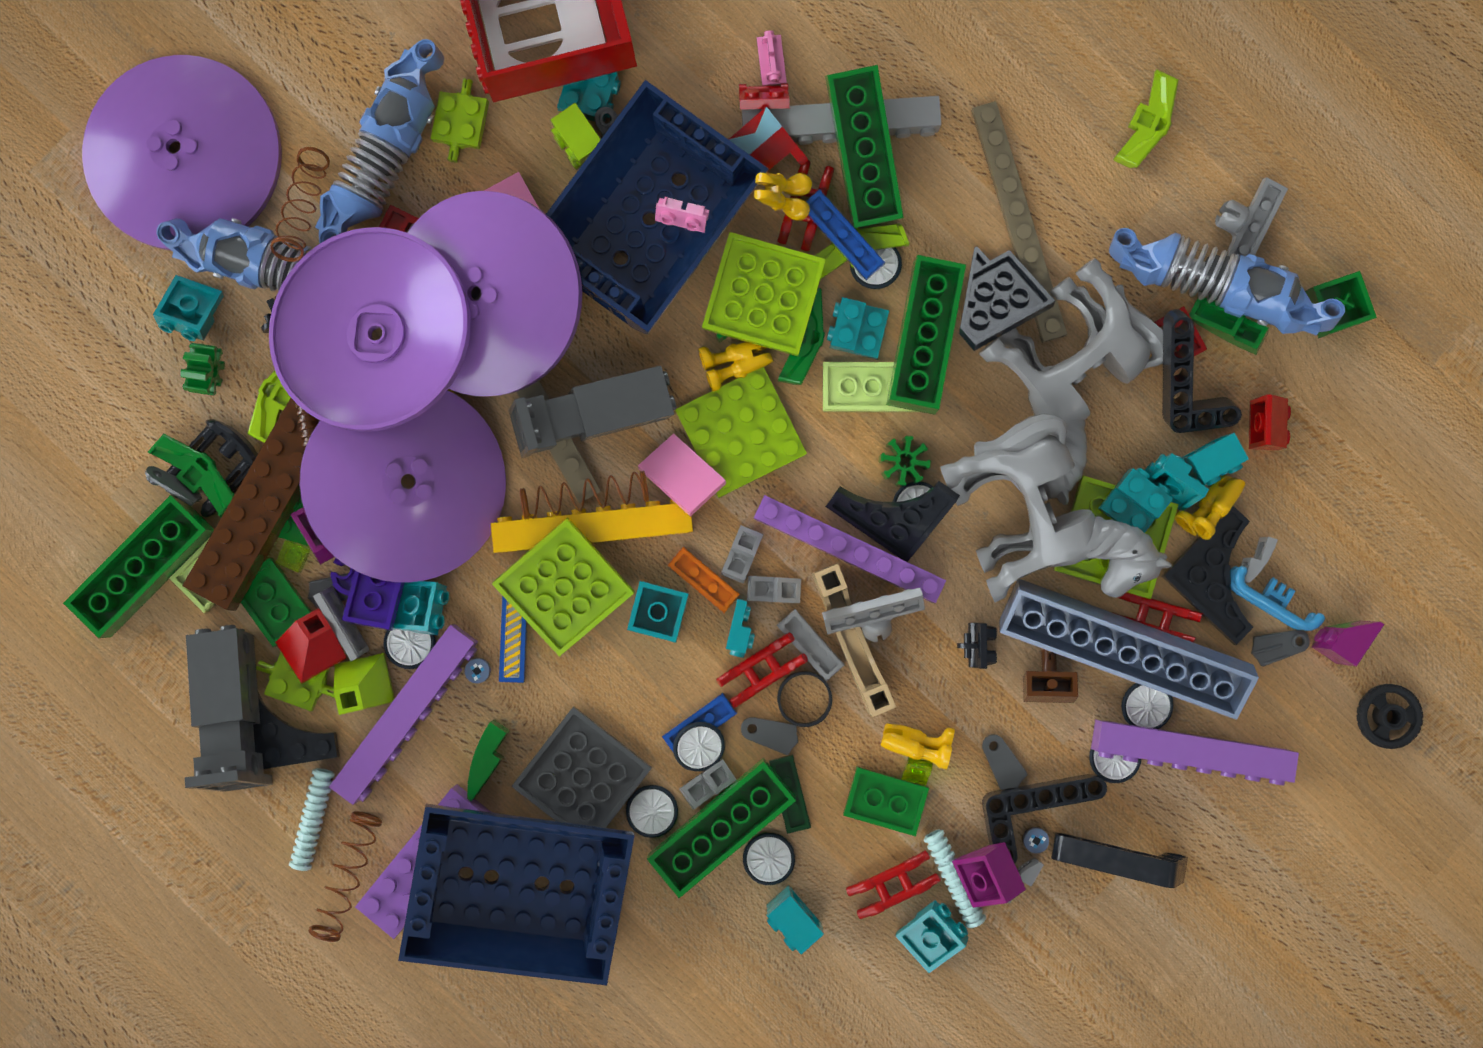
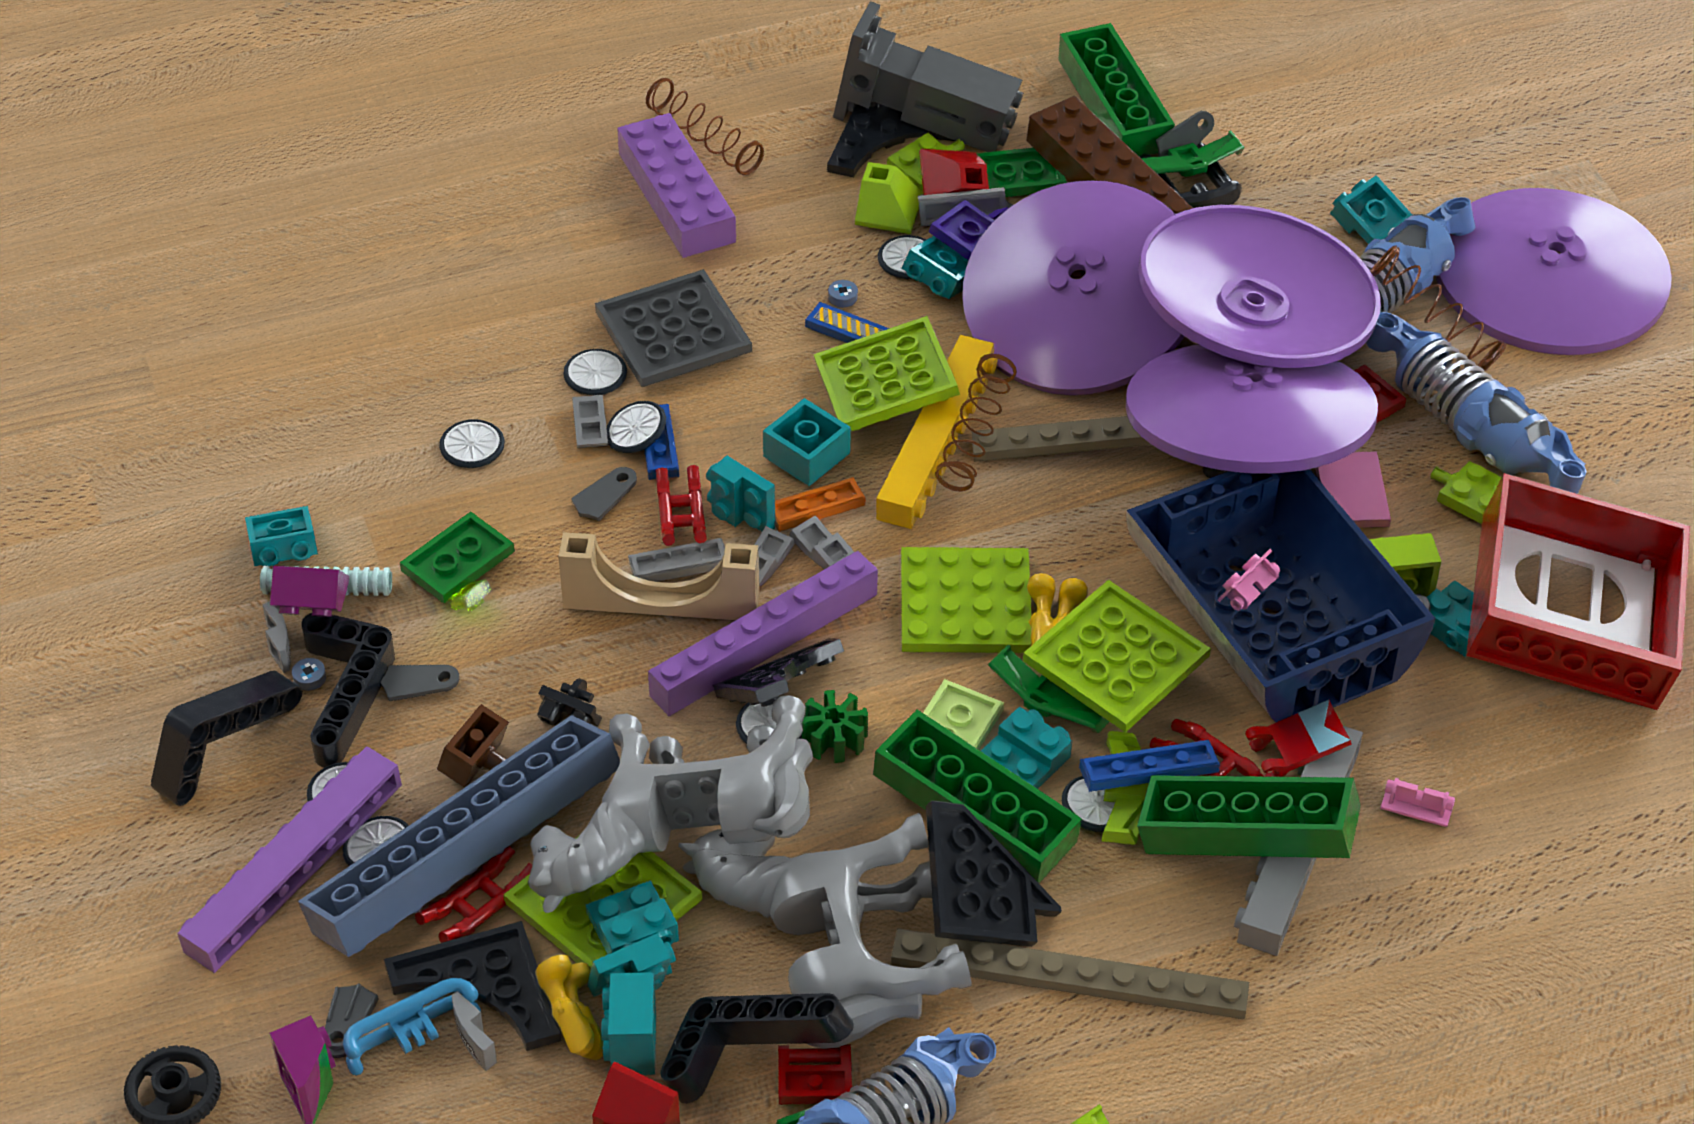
camera: 120 degrees right, 40 degrees down
(202, 369) = (1297, 192): green gear -> none
(311, 819) = (778, 125): light aqua piece -> none
(403, 715) = (837, 223): medium lavender brick -> none
(485, 758) = (747, 263): green slope -> none
(511, 921) = (569, 199): dark blue slope -> none
(592, 410) = (1067, 445): dark grey brick -> none
(682, 474) = (947, 517): bright pink tile -> none
(721, 828) = (537, 406): green brick -> none
(764, 96) = (1361, 761): red plate -> none
(794, 186) = (1230, 692): yellow piece -> none
(794, 920) = (395, 421): teal brick -> none
(796, 815) = (527, 486): dark green tile -> none
(810, 723) = (624, 511): black tyre -> none
(874, 615) = (671, 615): light grey plate -> none
(878, 882) = (370, 538): red piece -> none
(917, 745) = (508, 604): yellow piece -> none

